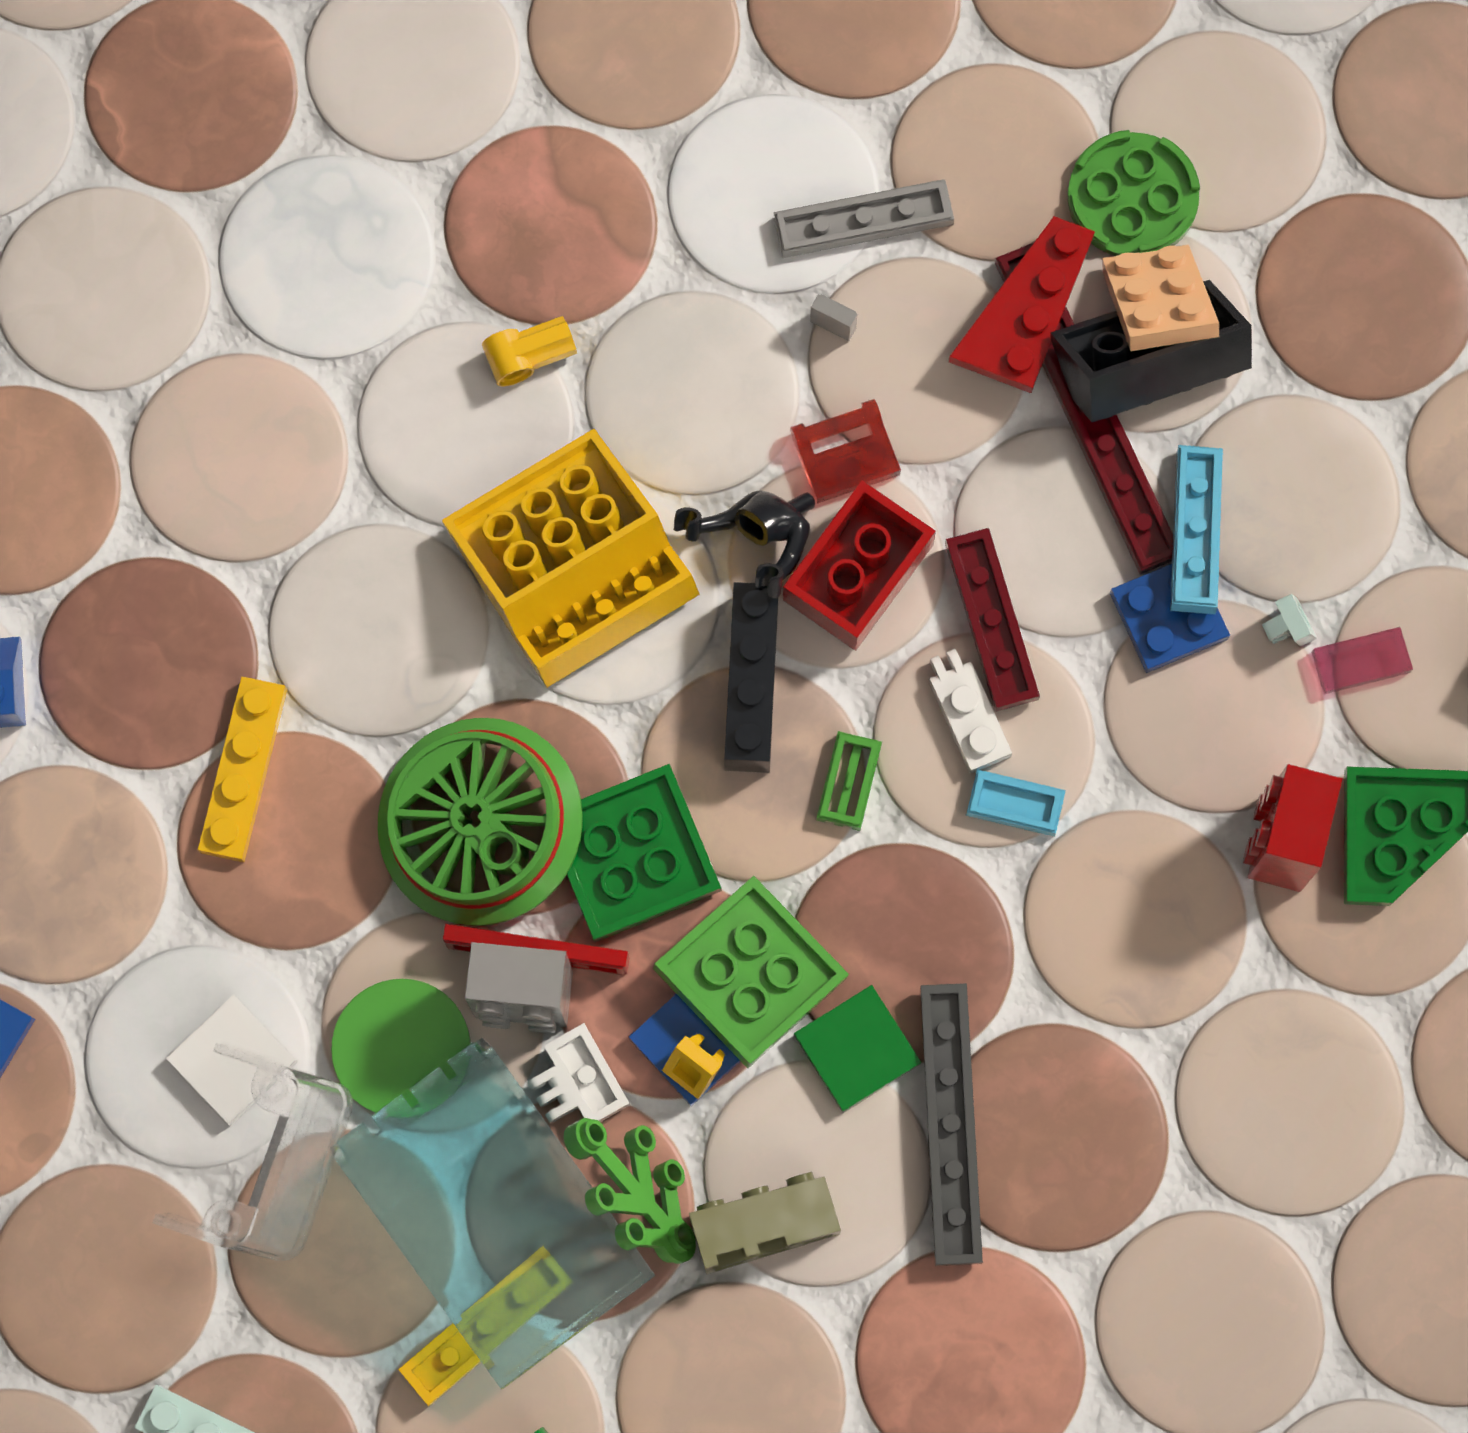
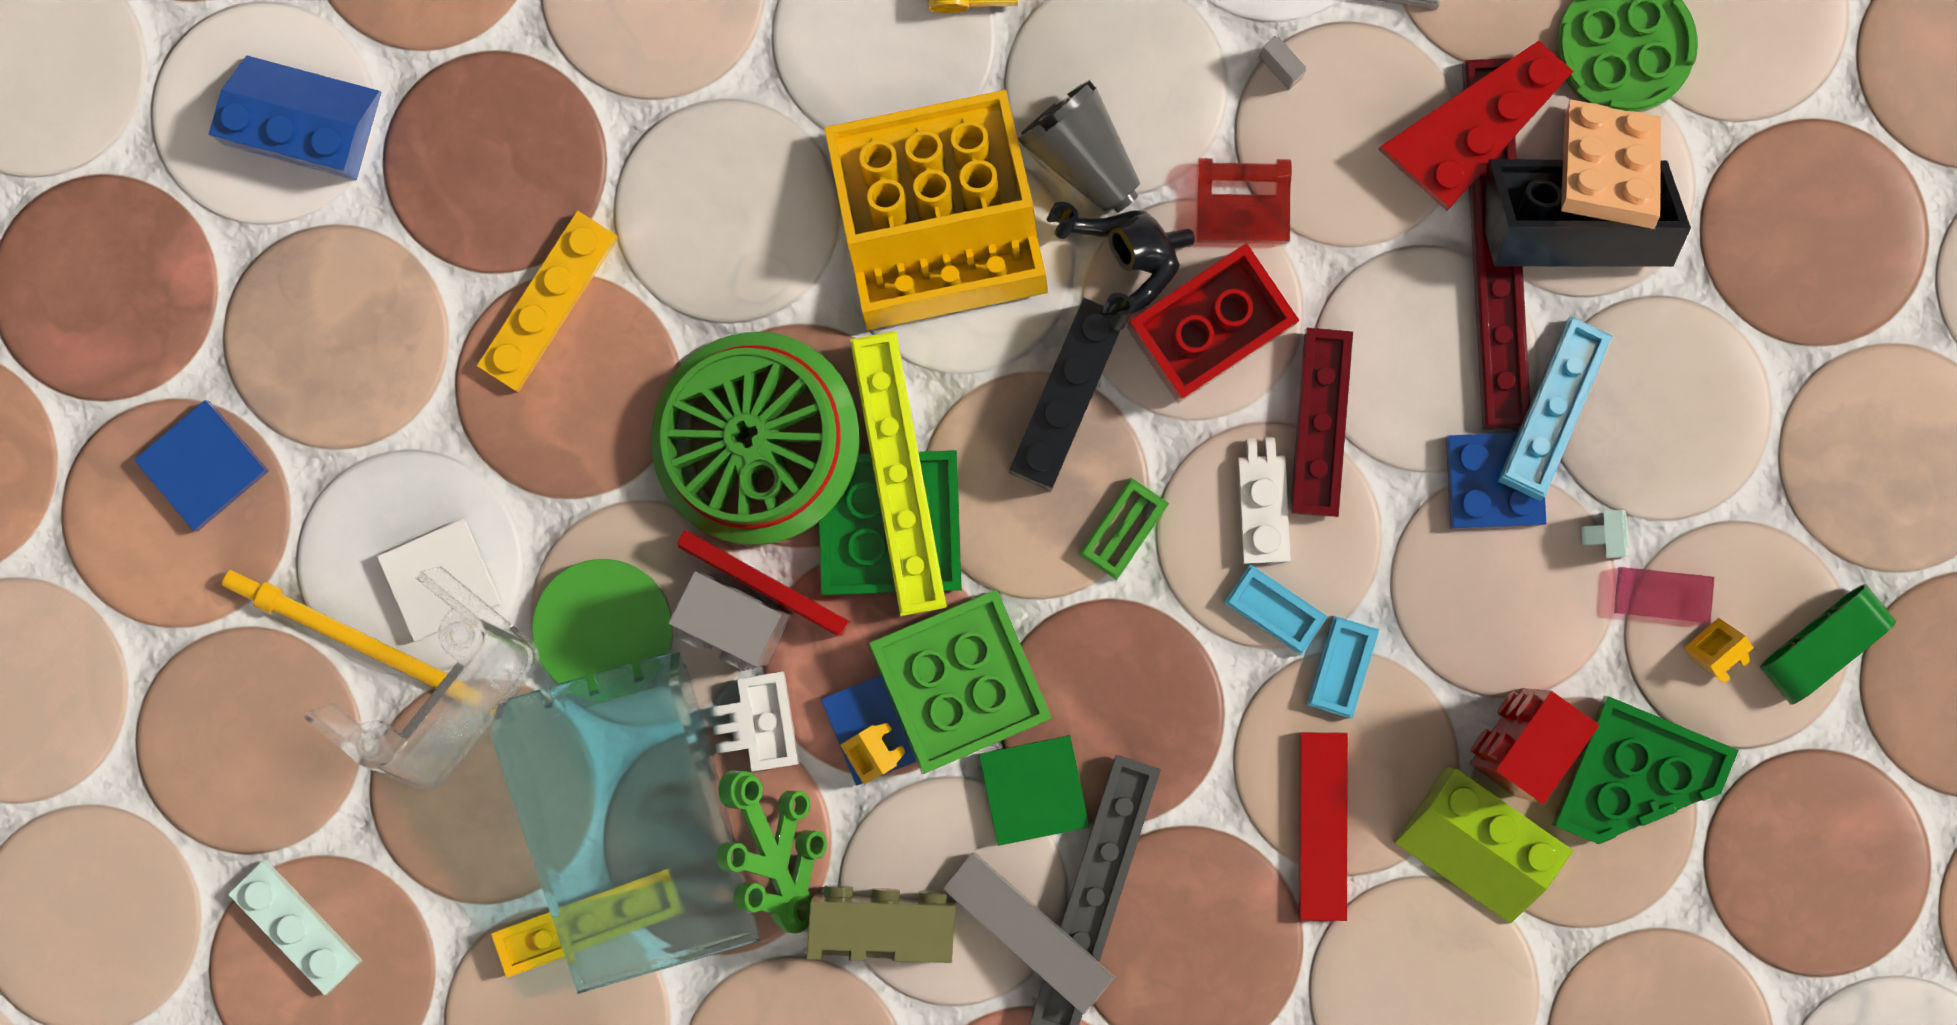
camera: 20 degrees right, 10 degrees up
(78, 1136) = (271, 598): none -> yellow bar
(624, 803) = (898, 473): none -> neon yellow tile
(685, 454) = (1084, 148): none -> dark grey cone
(903, 1178) = (1029, 933): none -> light grey tile
(1097, 832) = (1342, 667): none -> medium azure tile
(1136, 983) = (1323, 826): none -> red tile
(1288, 943) = (1483, 845): none -> lime slope
(1430, 688) = (1719, 649): none -> yellow tile

